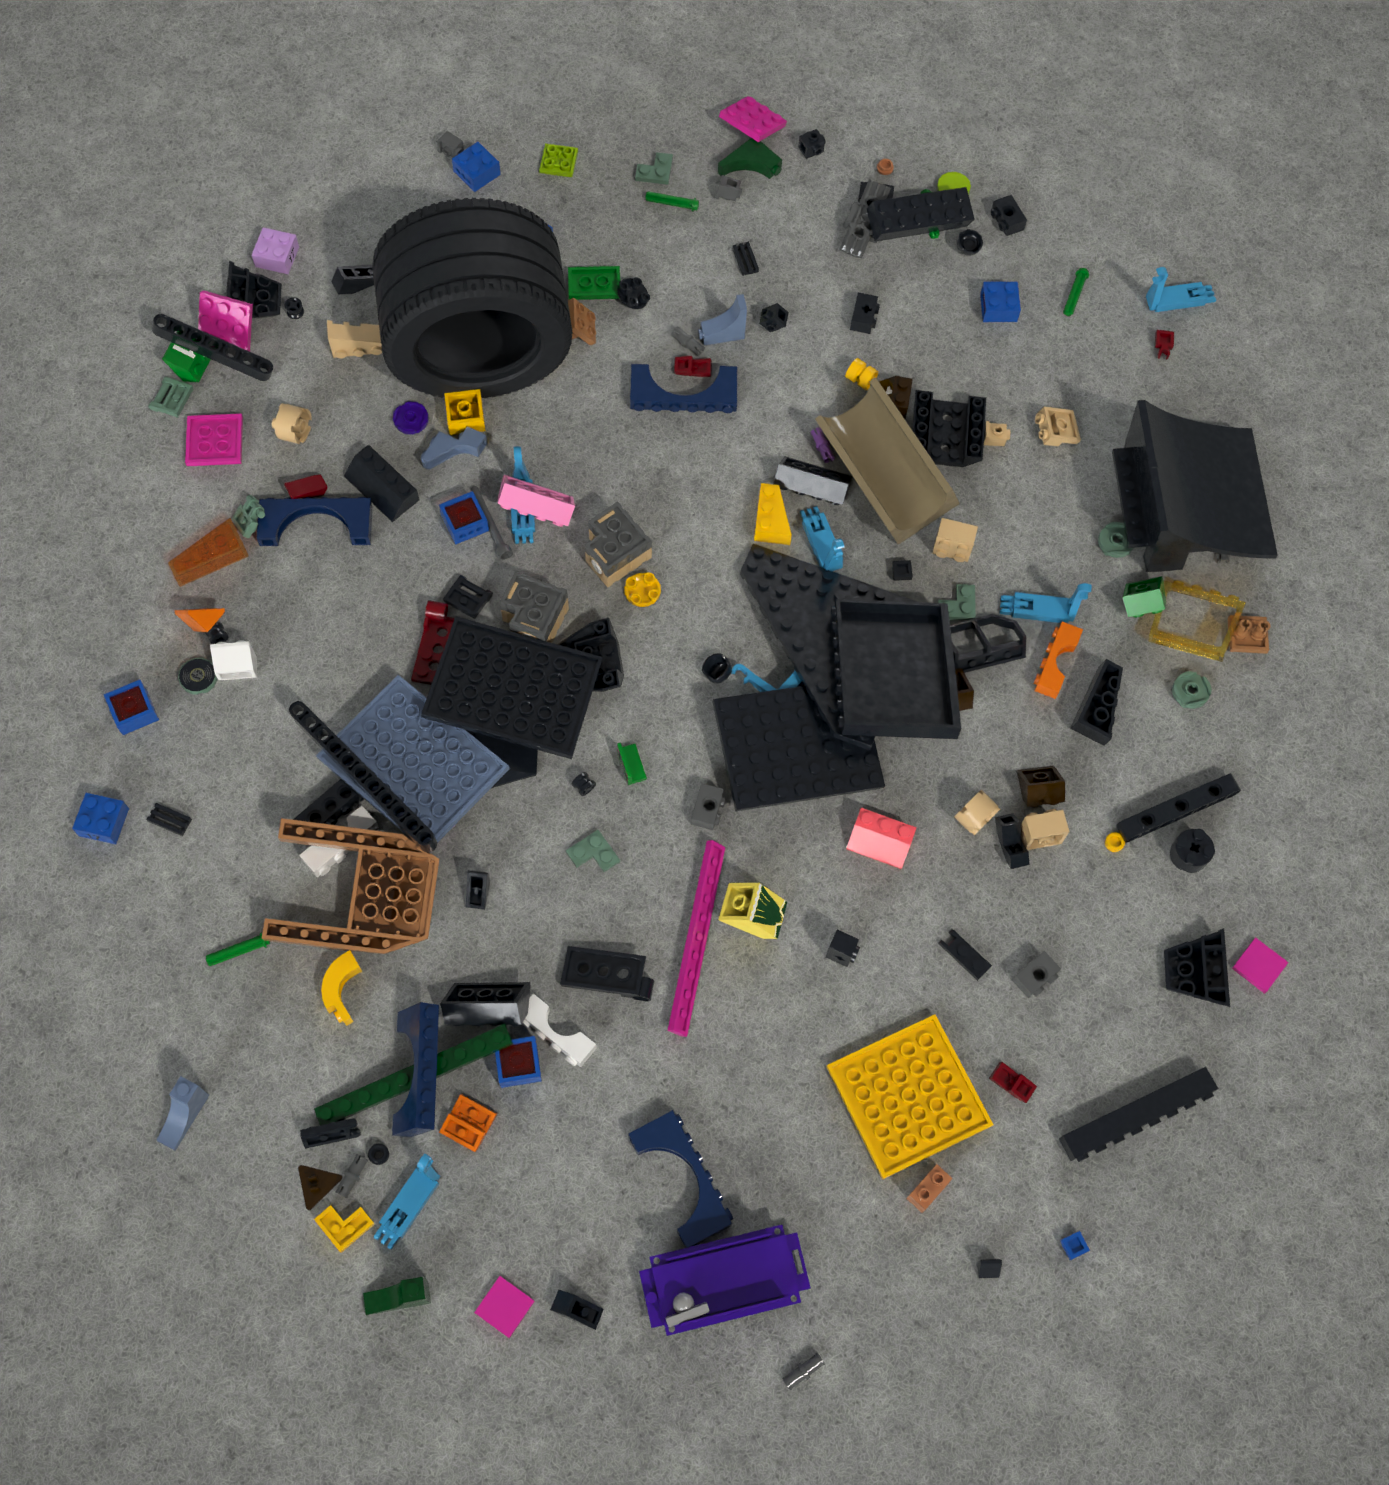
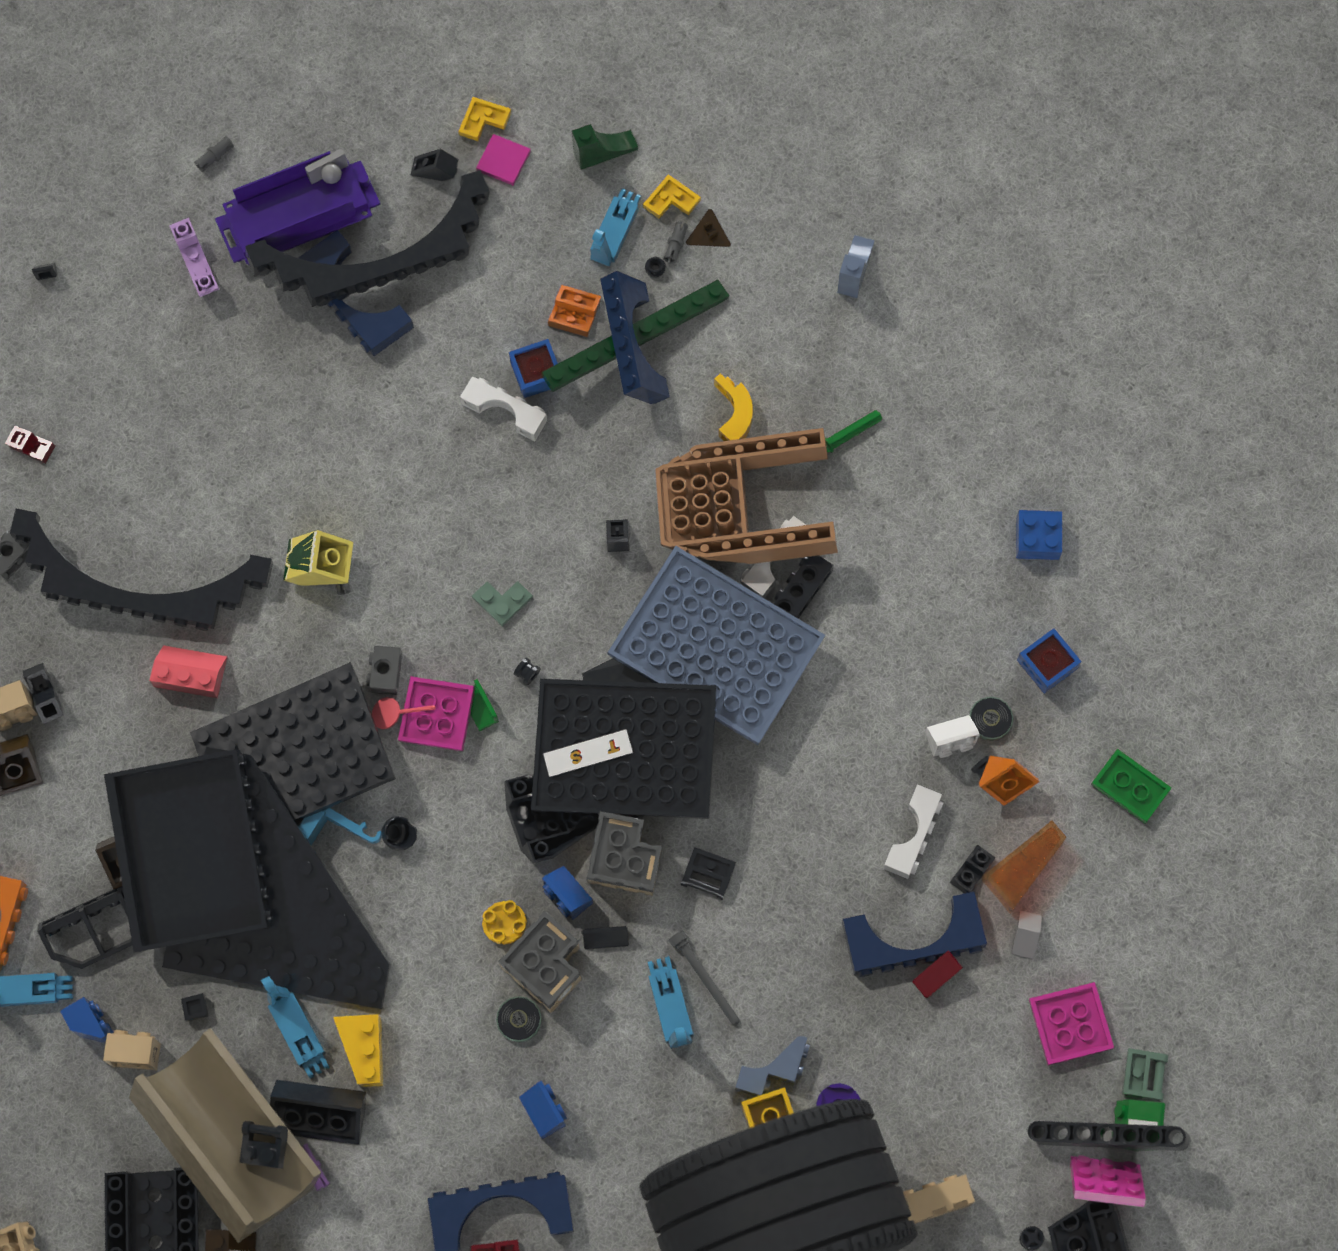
camera: 175 degrees right, 5 degrees up
(101, 601) = (1131, 786): none -> green plate
(160, 807) = (969, 544): black tile -> none
(224, 507) = (1026, 934): none -> light grey slope
(246, 516) = (996, 913): sand green plate -> none
(250, 565) = (972, 870): none -> black slope
(292, 423) = (979, 1057): tan brick -> none
(305, 578) = (903, 856): none -> white arch
(329, 1133) = (705, 276): black hinge -> none
(366, 783) = (771, 621): black beam -> none
(381, 483) = (848, 1001): black slope -> none
(435, 620) = (738, 837): dark red hinge -> none
(464, 517) = (735, 969): piece -> none
(486, 1003) = (579, 416): black slope -> none
(516, 1365) = (481, 113): none -> yellow plate
(536, 501) = (652, 1006): bright pink slope -> none
(544, 687) = (587, 753): none -> white sticker
(562, 565) = (605, 937): none -> black slope
(584, 1212) = (333, 282): none -> black arch
(586, 596) = (567, 892): none -> blue slope
(633, 986) = (429, 463): black hinge -> none
(637, 446) = (542, 1110): none -> blue slope
(647, 517) = (518, 1019): none -> black tile
(668, 760) = (441, 727): none -> dark pink plate
(696, 939) = (375, 529): dark pink plate -> none
(711, 770) = (387, 712): none -> coral piece
(834, 1244) = (194, 257): none -> lavender slope
(843, 948) = (217, 537): black brick -> none
(857, 443) = (260, 1152): none -> black plate
(909, 1096) = (135, 412): yellow plate -> none
(929, 1188) = (107, 326): nougat brick -> none
(964, 606) = (117, 973): sand green plate -> none
(966, 955) = (86, 561): black hinge -> none
(976, 924) = (190, 607): none -> black arch
(977, 812) = (83, 713): tan brick -> none
(989, 566) = (85, 1020): none -> blue slope
(996, 434) = (97, 1228): tan brick -> none

